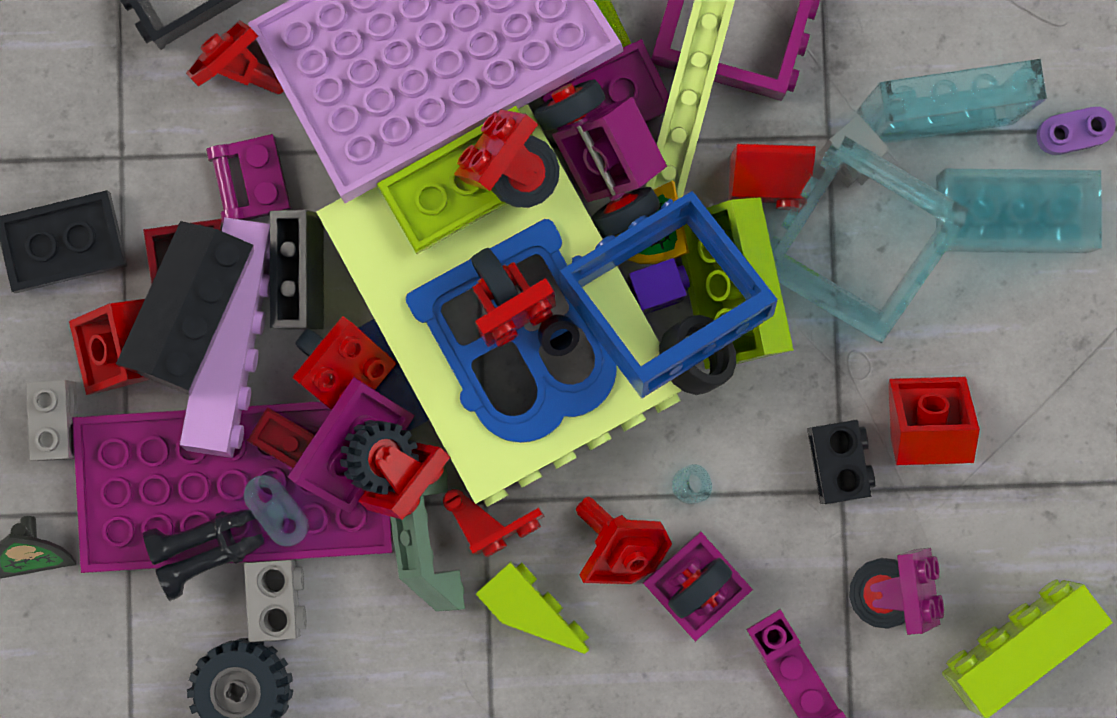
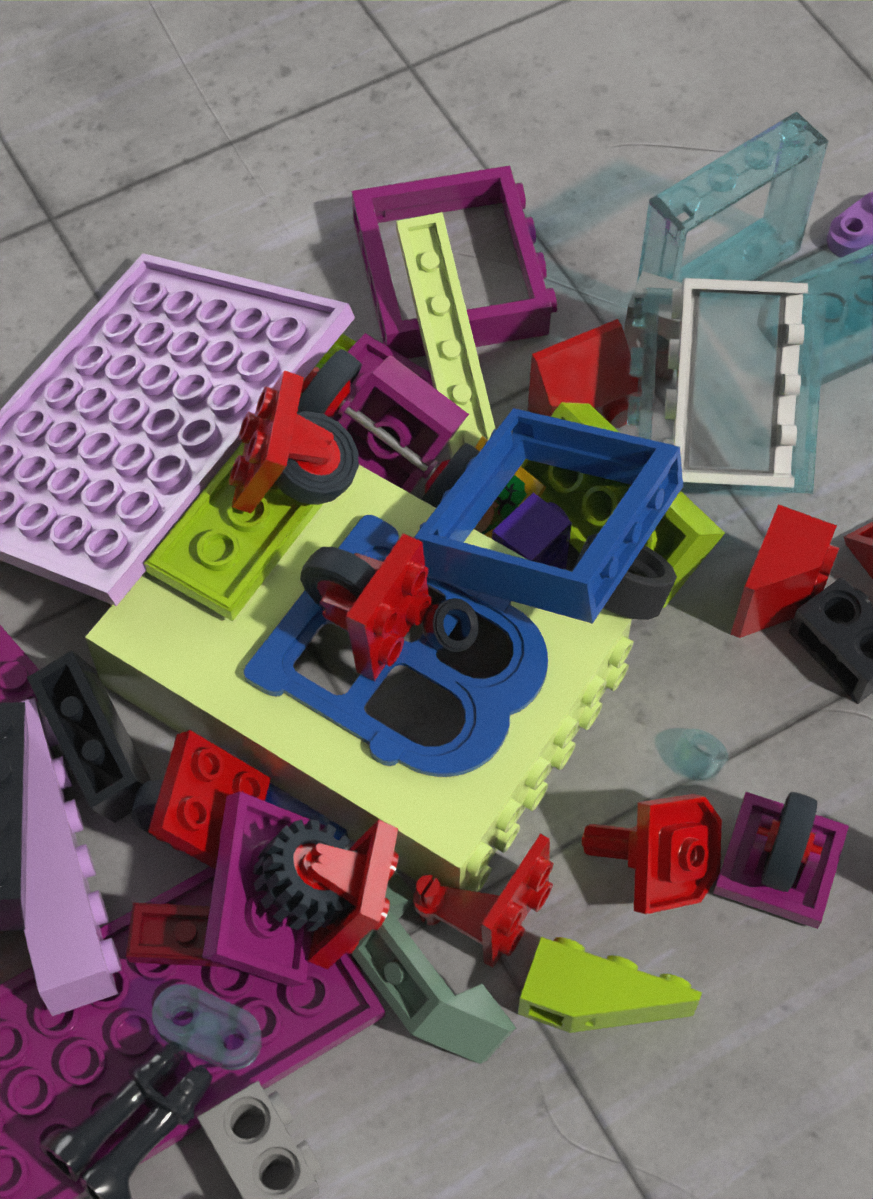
camera: 25 degrees left, 25 degrees down
(822, 395) = (786, 572): none -> red slope
(861, 251) = (736, 380): none -> clear window

